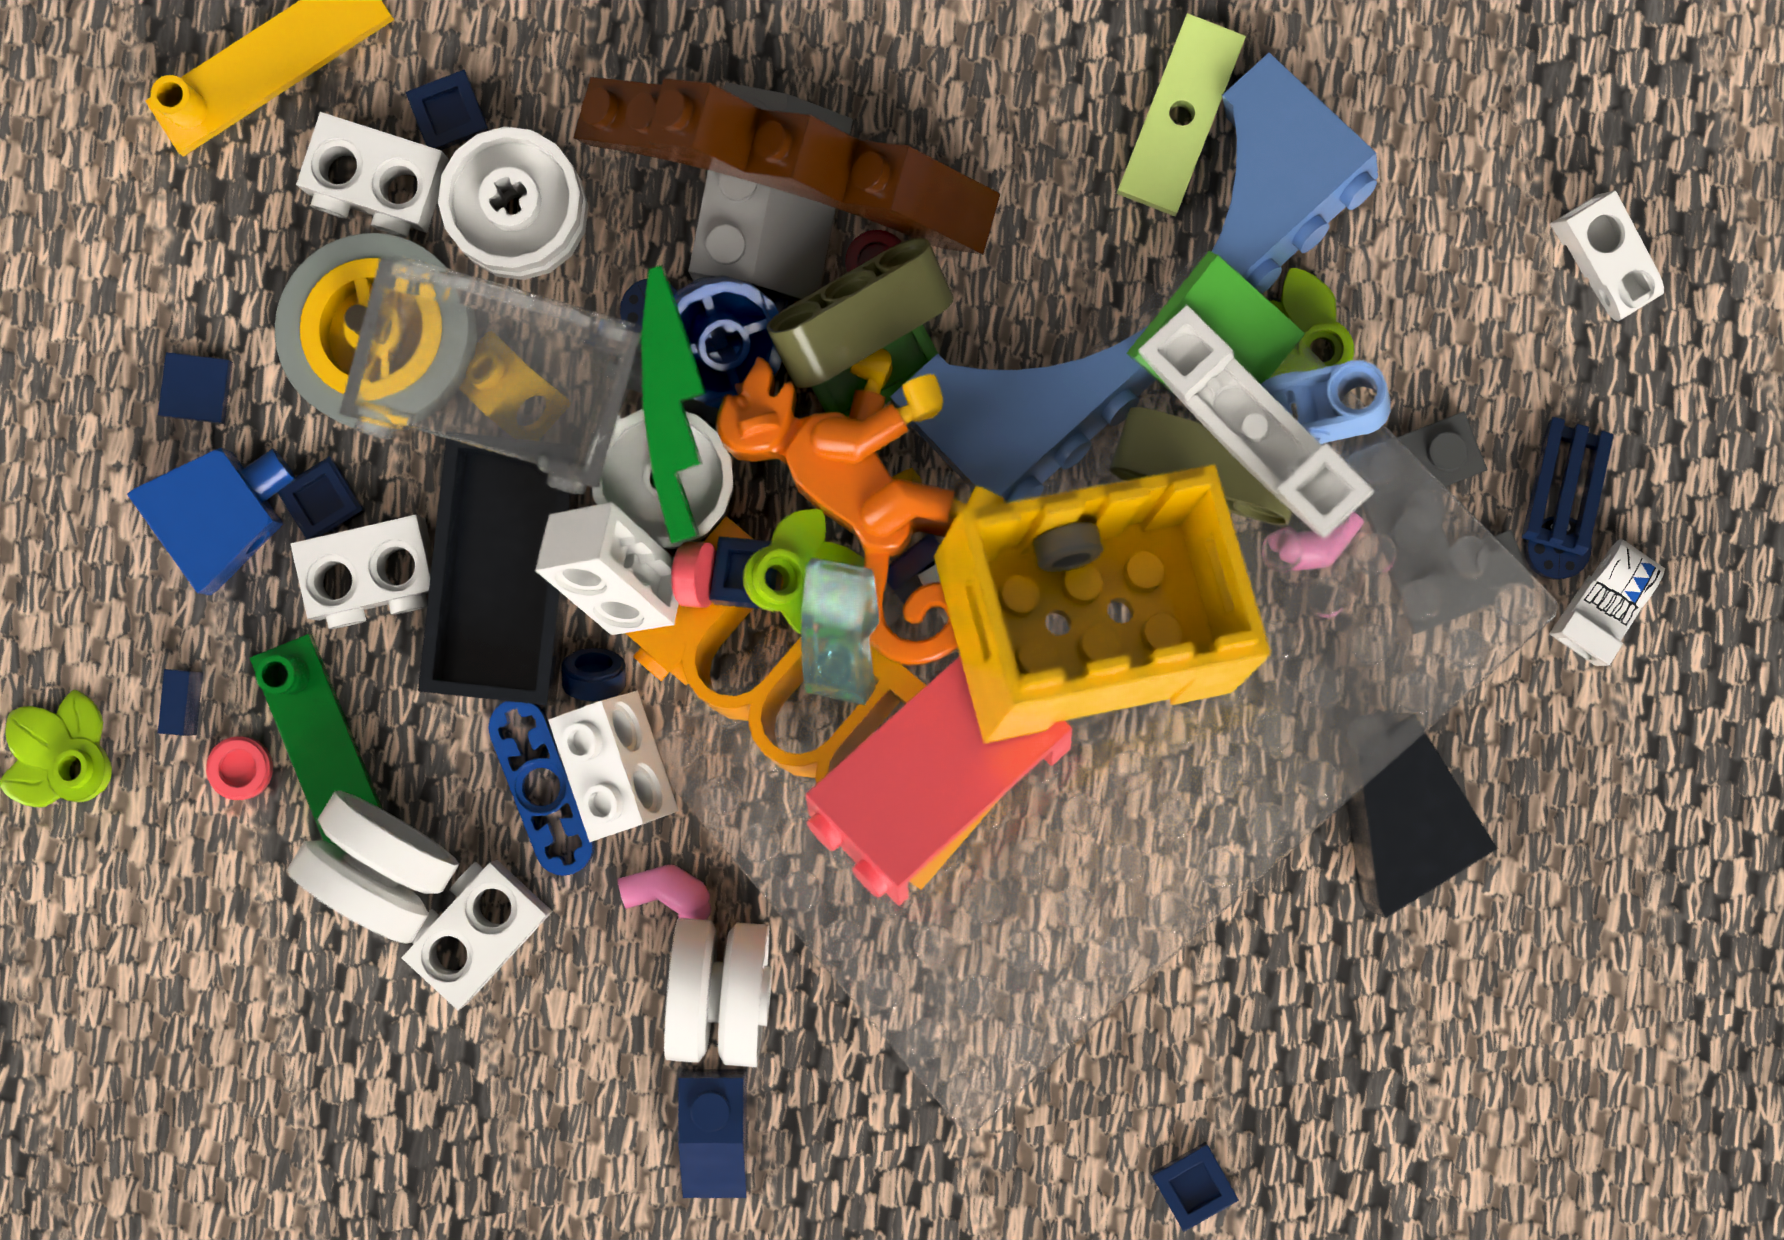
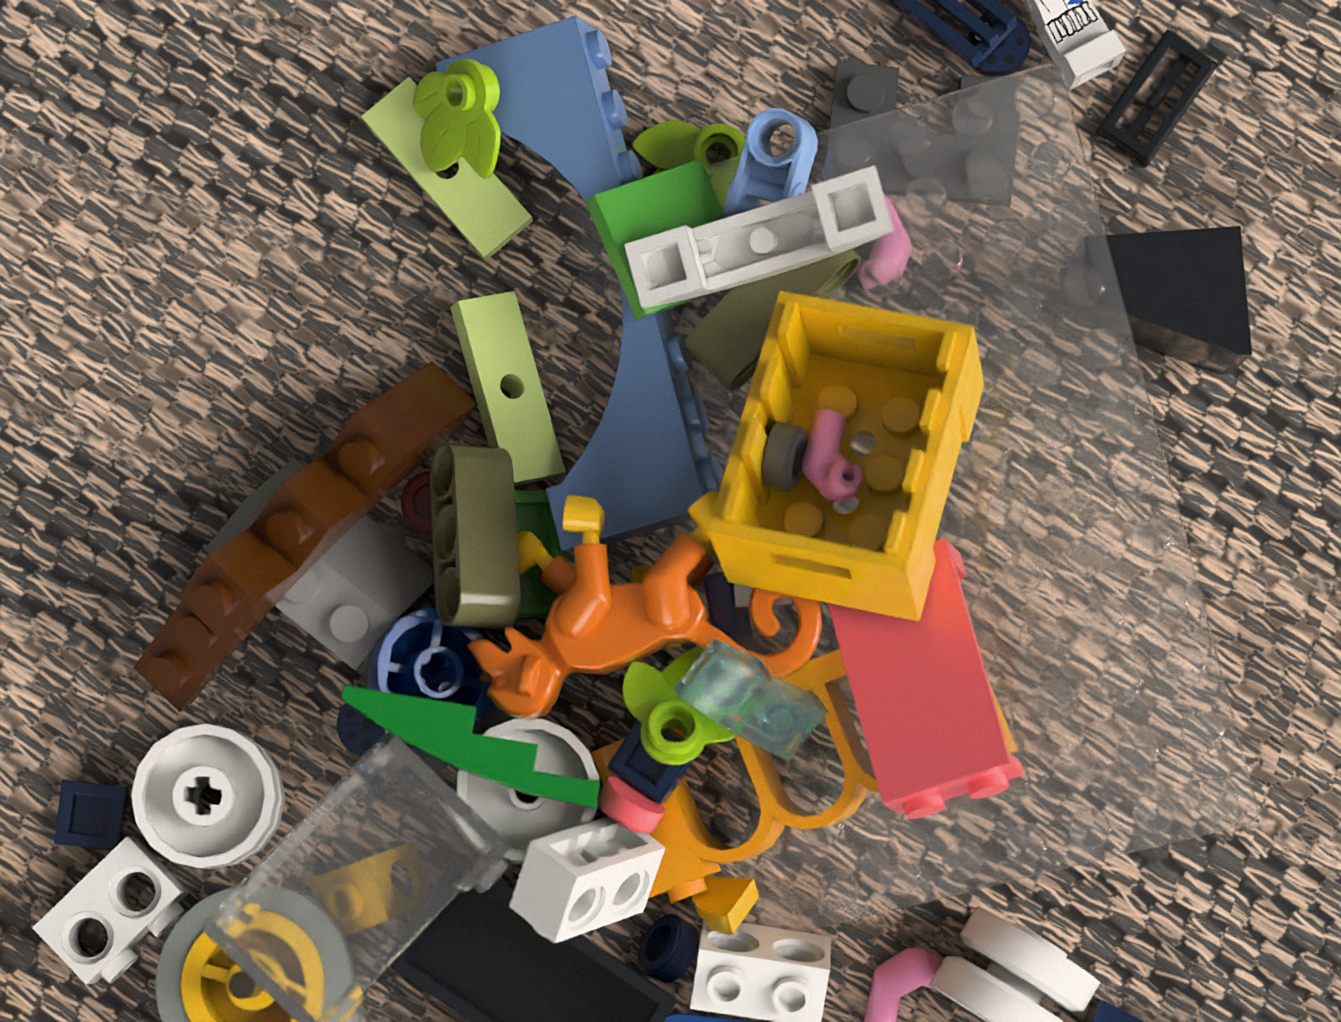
camera: 65 degrees left, 5 degrees down
(658, 703) = (725, 902): none -> yellow tile
(1039, 249) = (498, 354): none -> yellowish green tile
(1082, 585) = (825, 463): none -> bright pink arm
(1229, 99) = (459, 117): none -> lime plate
(1528, 709) = (1126, 140): none -> black tile

